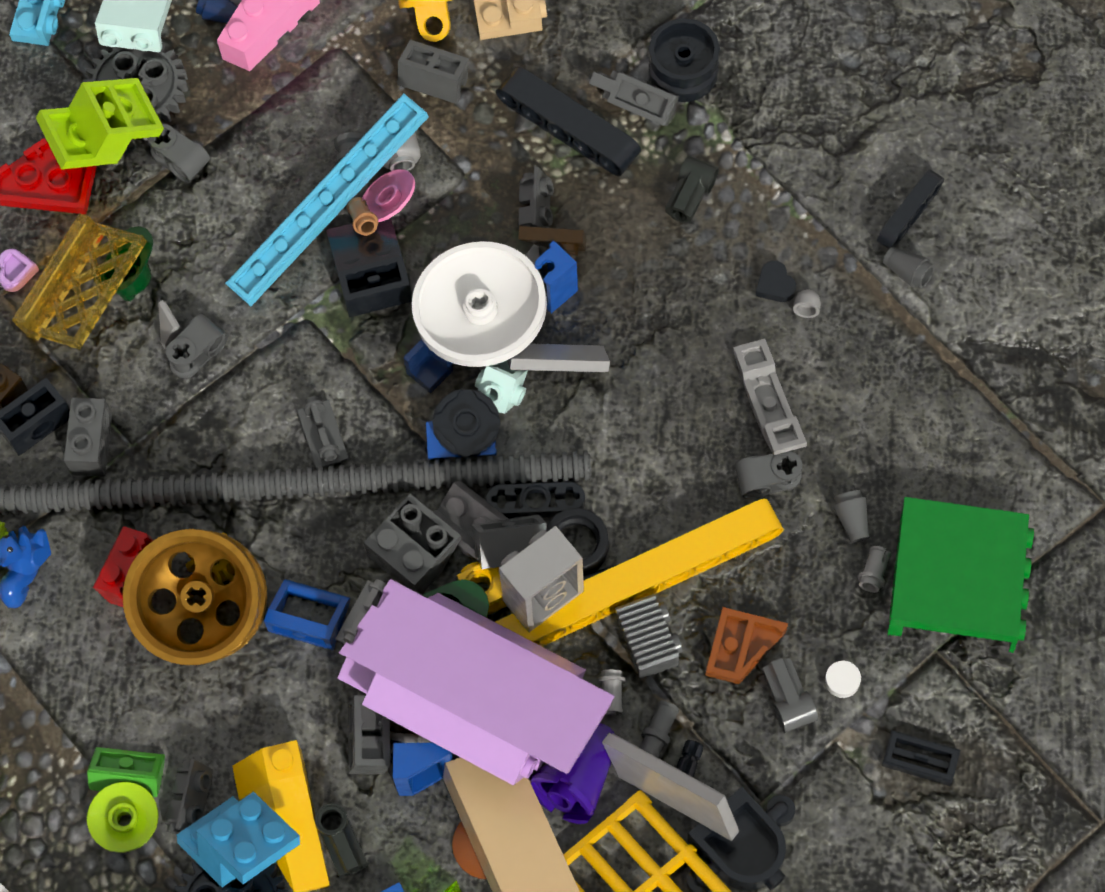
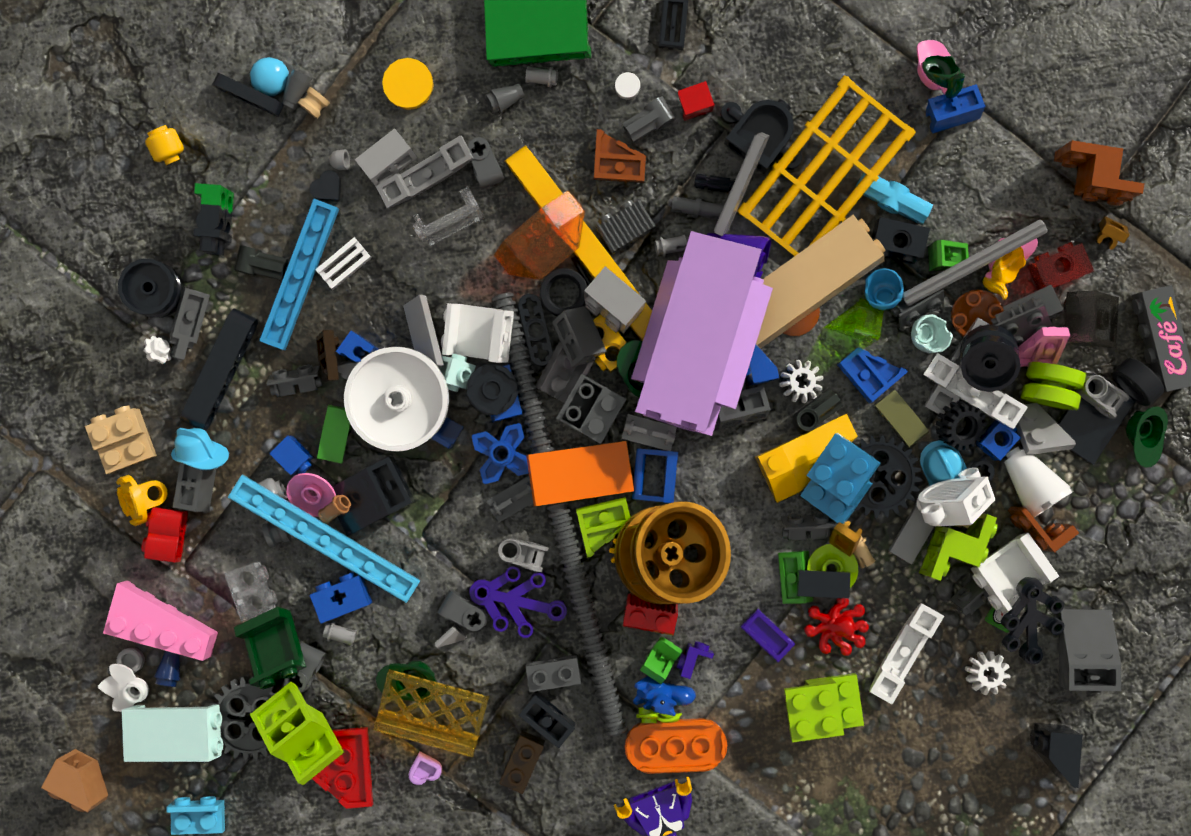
camera: 105 degrees left, 20 degrees up
(44, 812) = (838, 625): none -> red animal
(56, 606) = (687, 661): none -> dark purple bracket
(60, 718) = (767, 635): none -> dark purple tile
(65, 570) = (660, 660): none -> bright green bracket
(105, 796) = (823, 584): none -> black tile
(137, 862) = (863, 554): none -> tan pin
(157, 835) = (845, 538): none -> pearl gold tile
(191, 409) = (514, 600): none -> dark purple plant
(208, 200) = (339, 633): none -> light grey pin
(212, 120) = (272, 647): none -> dark green panel
(246, 434) = (524, 554): none -> light grey piece
(247, 192) = (329, 608): none -> blue brick
(264, 532) = (601, 523): none -> lime wing
(287, 103) = (244, 593): none -> clear brick
(332, 514) = (580, 473): none -> orange tile
(379, 30) = (165, 534): none -> red brick
(383, 427) = (490, 446): none -> blue plant
(388, 839) = (809, 377): none -> white gear
(441, 183) = (292, 456): none -> blue brick
(448, 232) = (334, 435): none -> bright green slope
(471, 79) = (198, 450): none -> medium azure piece
(546, 422) = (477, 332): none -> white panel
(608, 57) = (157, 350): none -> white plant
(651, 525) = (543, 239): none -> clear orange wedge
(660, 263) = (335, 257): none -> white tile
(668, 231) = (299, 274): none -> dark azure plate
(708, 441) = (451, 222): none -> clear panel
(756, 141) = (214, 218): none -> black hips
(798, 356) = (386, 157): none -> light grey hinge
(804, 761) = (696, 100): none -> red panel
(862, 105) = (164, 145): none -> yellow head
(886, 283) = (313, 102): none -> tan wheel
(894, 402) = (408, 83): none -> yellow tile
(931, 238) = (269, 76): none -> medium azure hair

